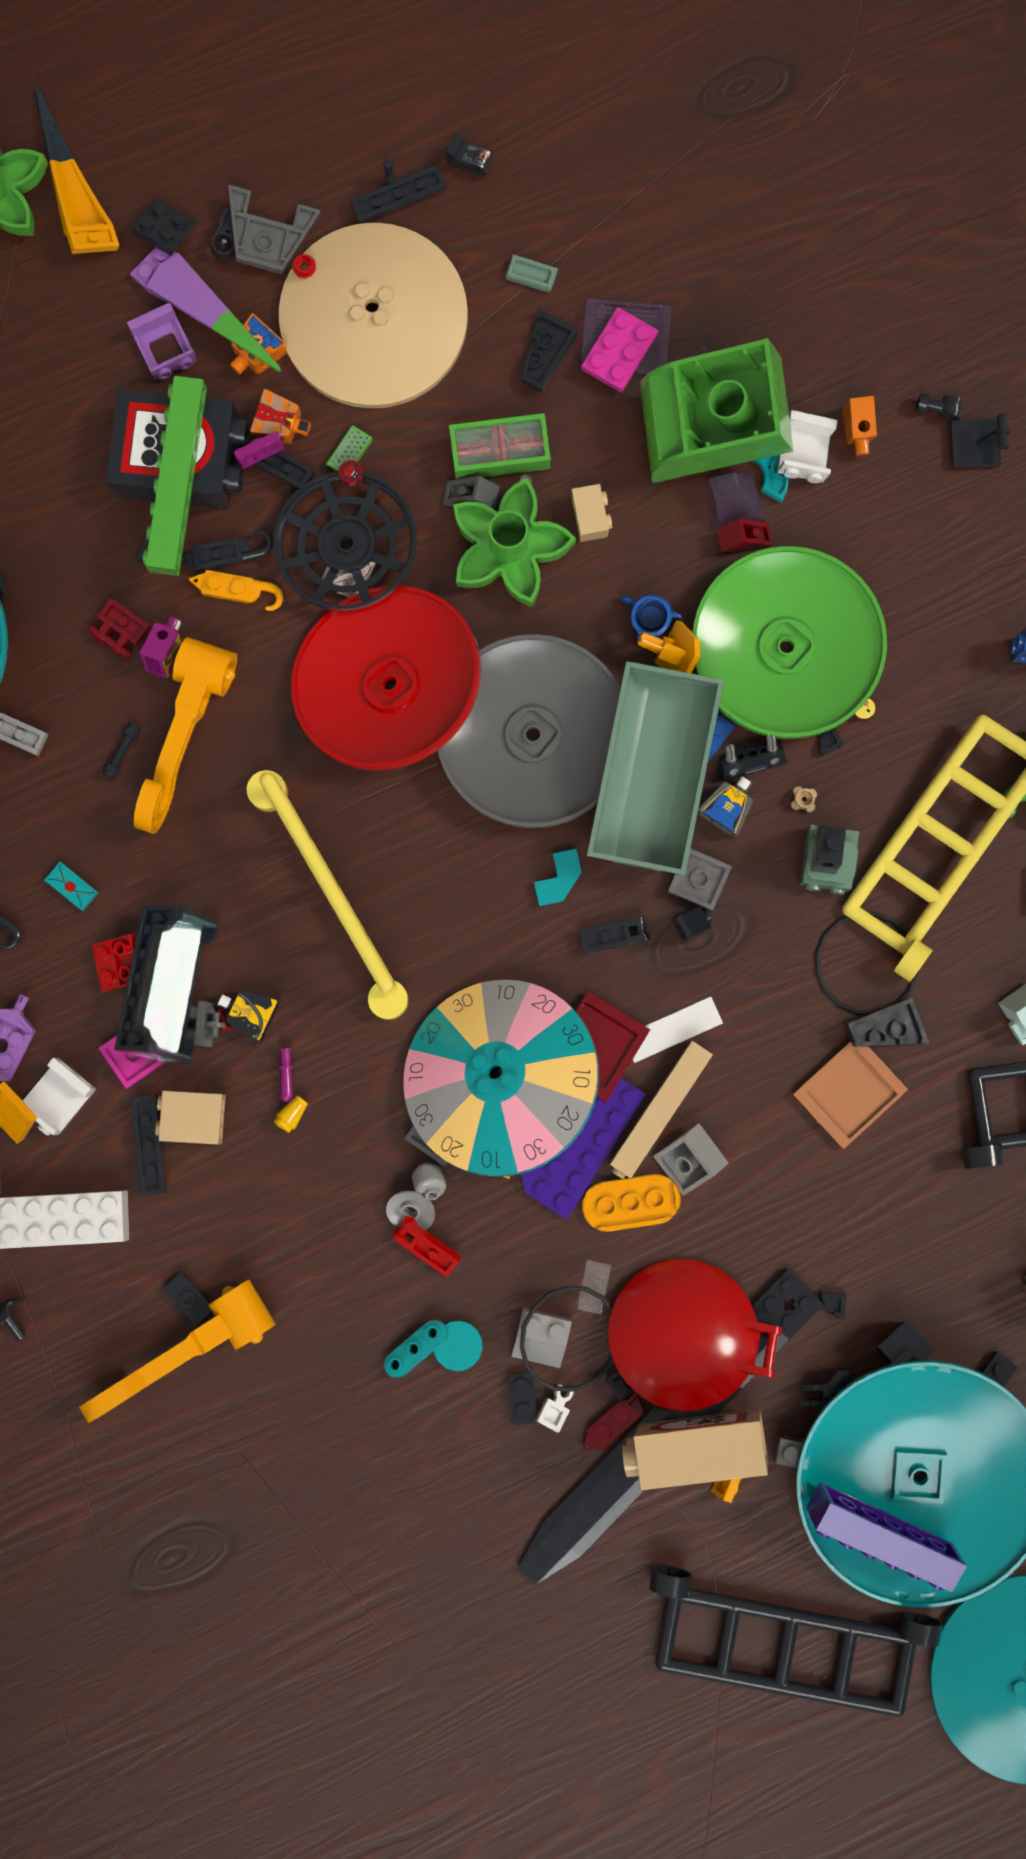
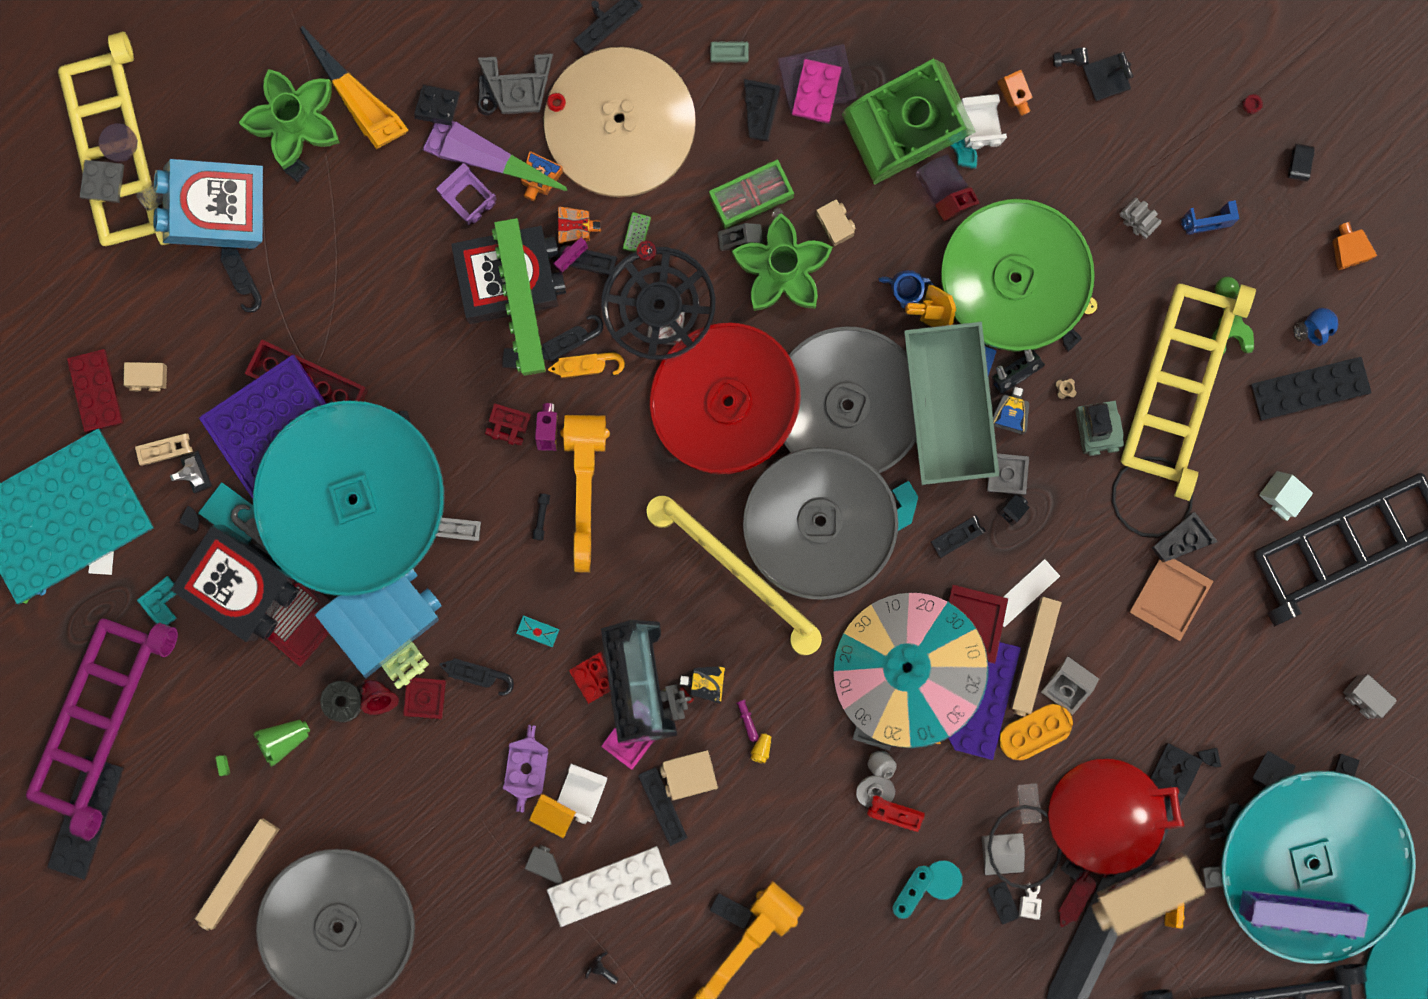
camera: 25 degrees left, 0 degrees up
(405, 870) = (828, 557): none -> dark grey dish
(961, 621) = (1140, 218): none -> light grey gear

